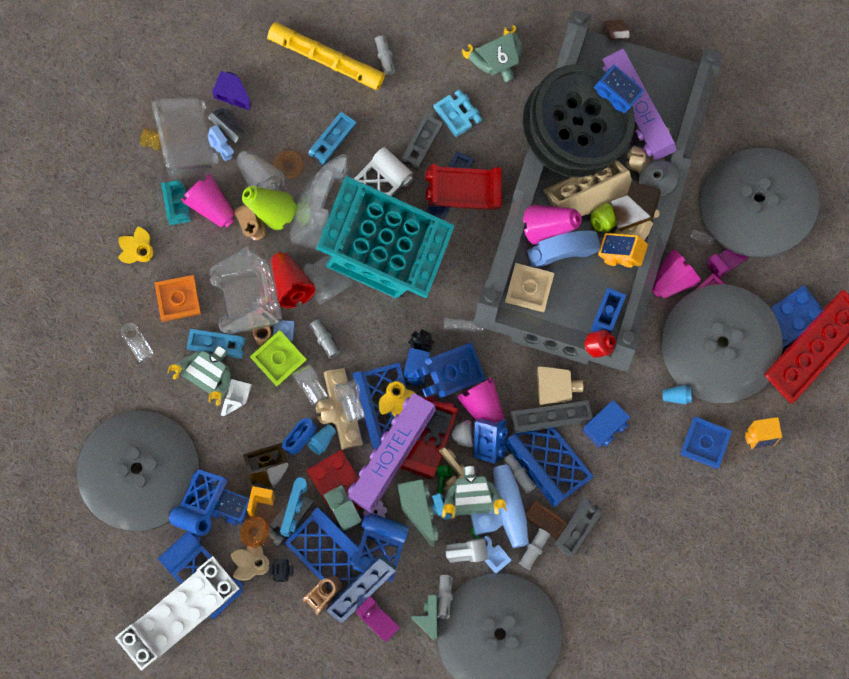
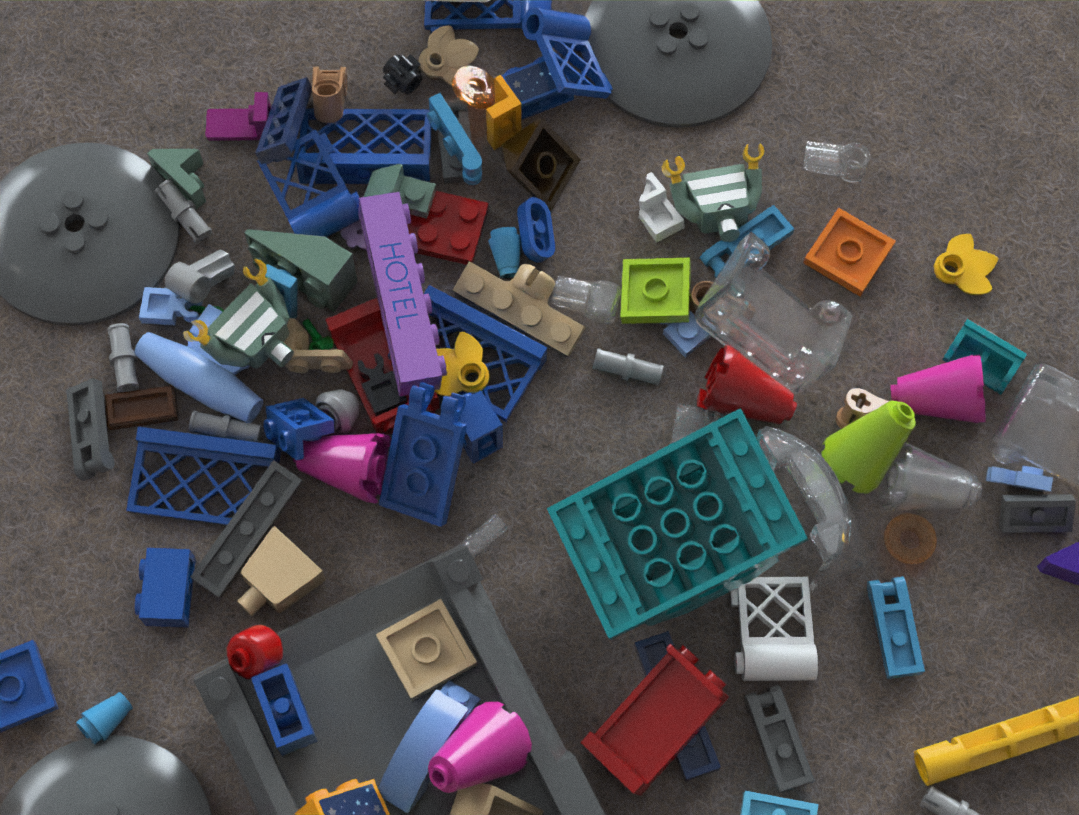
camera: 135 degrees right, 5 degrees down
(348, 395) = (522, 314): clear piece -> none
(421, 340) = (505, 469): black gear -> none

